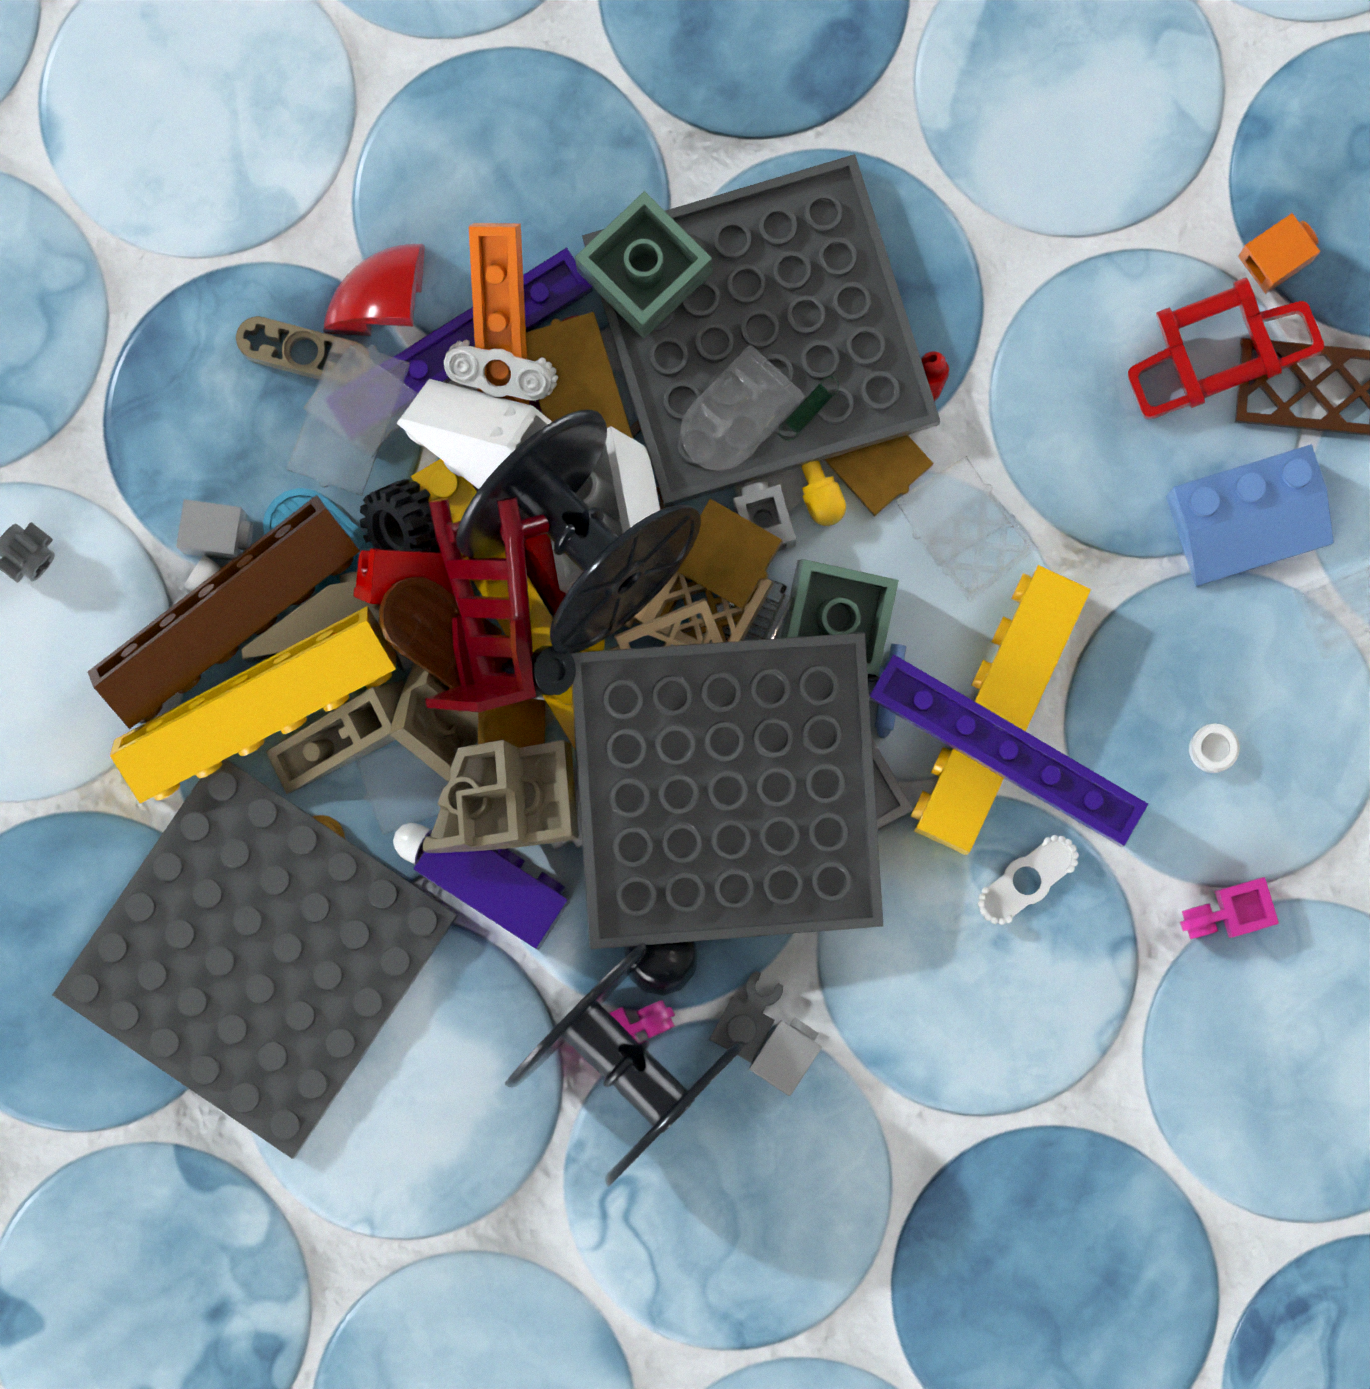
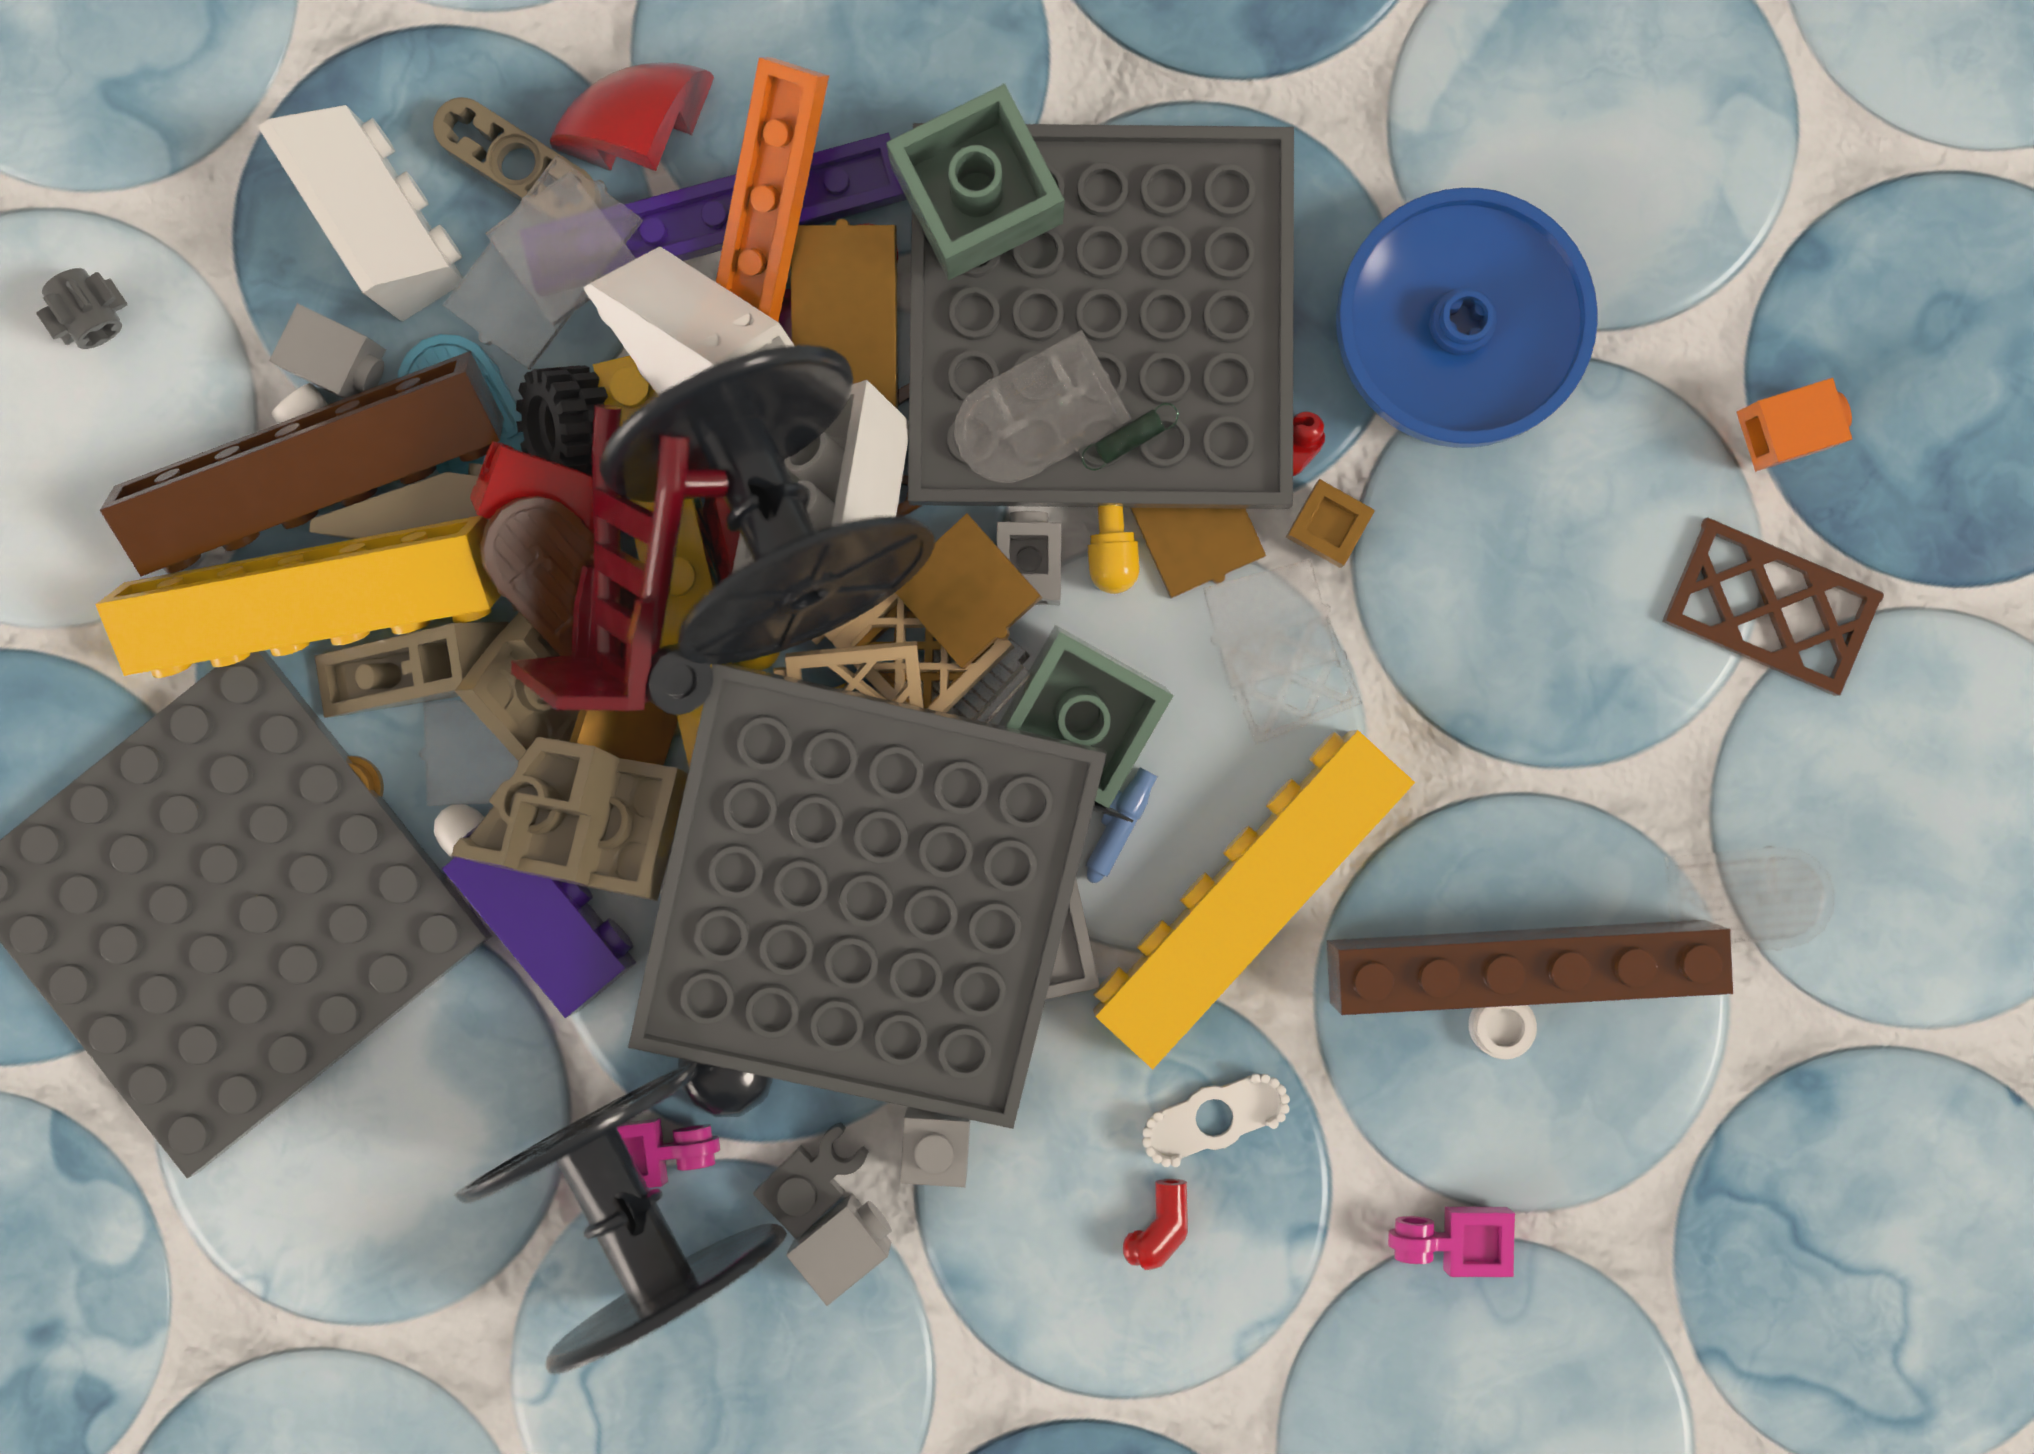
camera: 15 degrees right, 5 degrees up
(213, 416) = (366, 207): none -> white slope
(528, 378) = (782, 285): white piece -> none
(831, 959) = (934, 1149): none -> light grey brick
(972, 426) = (1330, 523): none -> pearl gold plate
(1008, 751) = (1243, 960): dark purple plate -> none
(1018, 974) = (1166, 1232): none -> red arm
(1021, 250) = (1466, 317): none -> blue dish
(1216, 696) = (1529, 967): none -> reddish brown brick
(1252, 515) = (1649, 749): medium blue slope -> none
(1265, 364) = (1731, 560): red bar -> none

